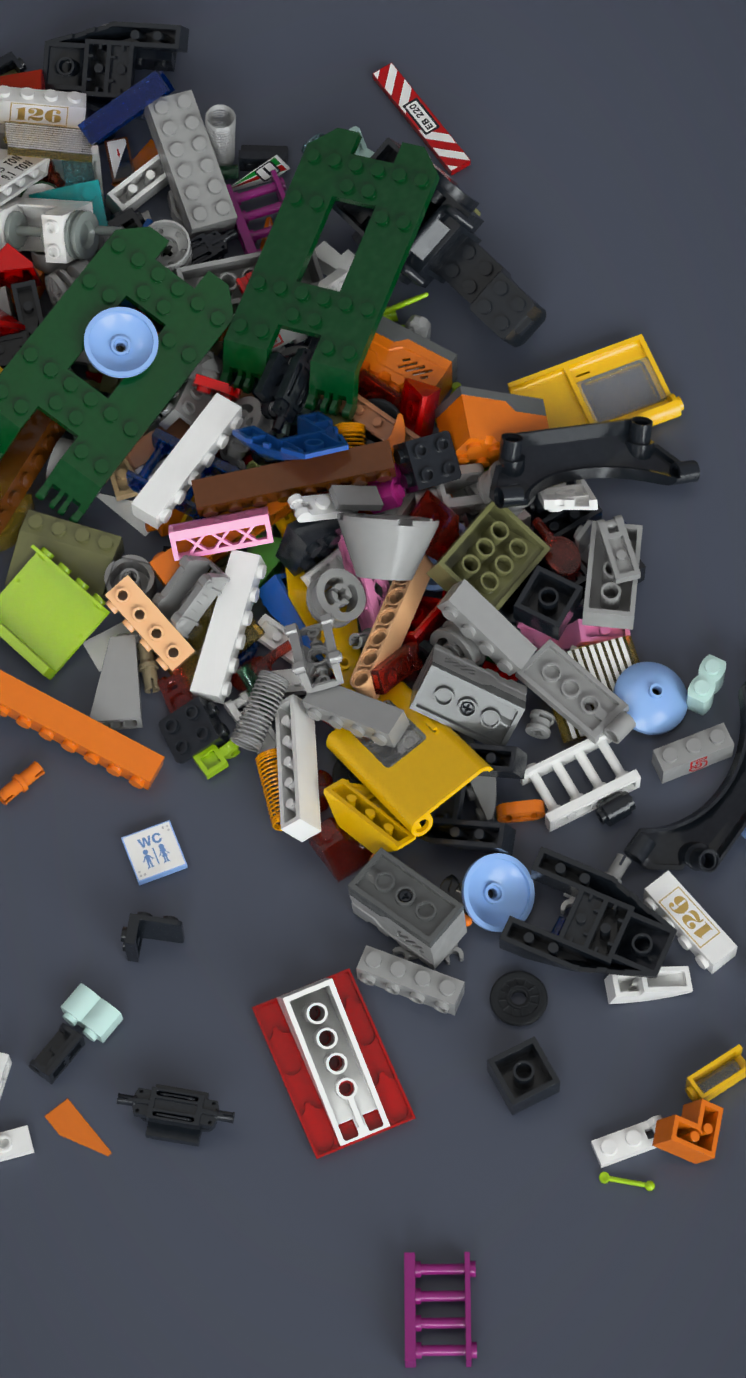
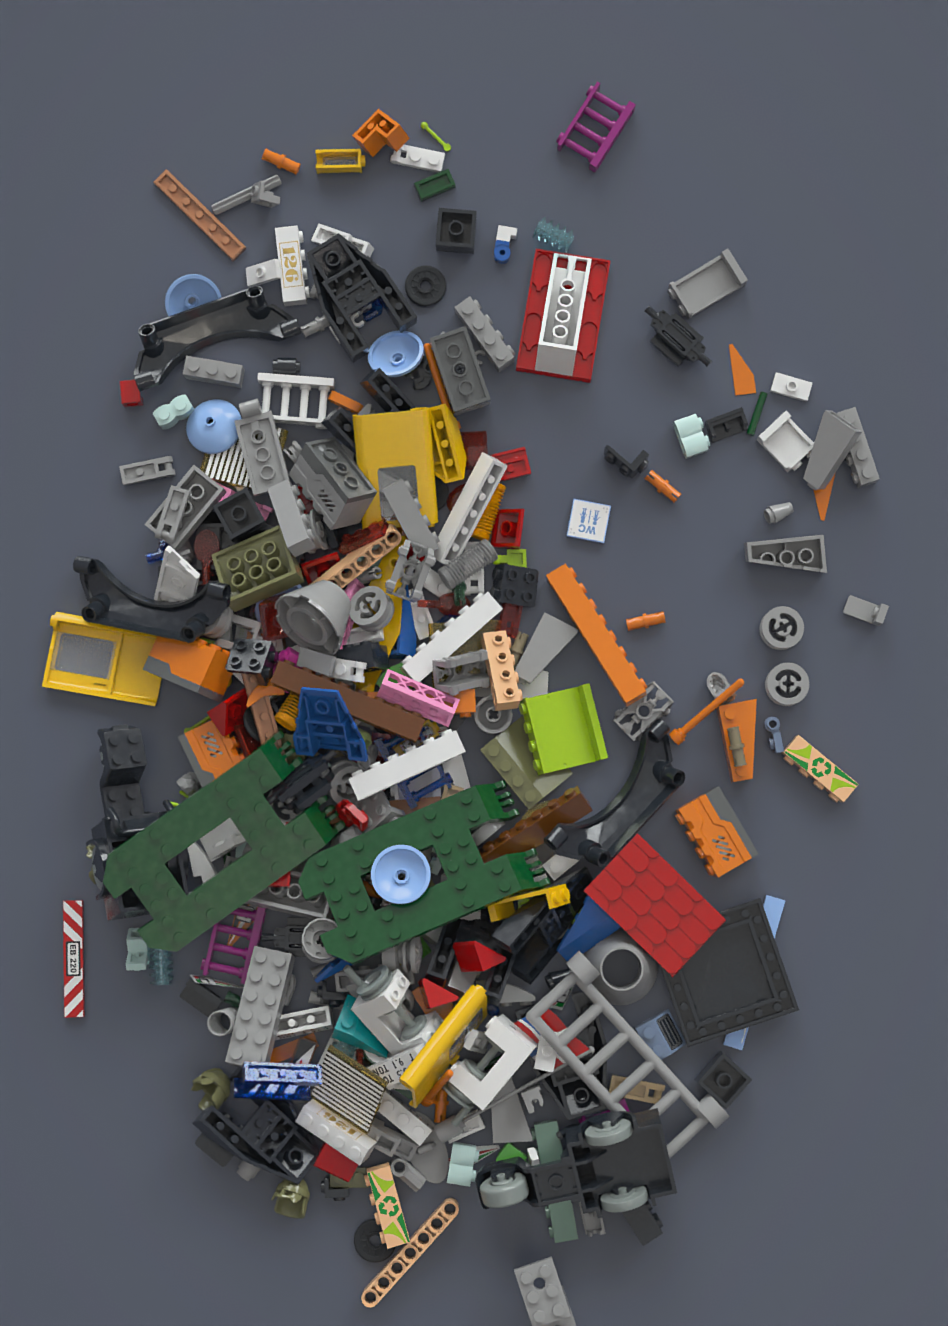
camera: 145 degrees left, 20 degrees up
(28, 1090) = (757, 413): none -> dark green piece
(41, 31) = (291, 1199): none -> olive helmet
(90, 939) = (663, 486): none -> orange pin
(181, 1202) = (707, 284): none -> light grey panel
(188, 77) = (216, 1088): none -> olive helmet
(240, 786) = (507, 529): none -> red slope
(285, 858) = (516, 461): none -> red plate
(403, 1145) = (554, 234): none -> clear light blue piece
(456, 1093) = (502, 244): none -> leg
(588, 1122) = (434, 185): none -> dark green tile
(691, 610) = (146, 470): none -> light grey plate
(715, 892) = (263, 272): none -> white plate

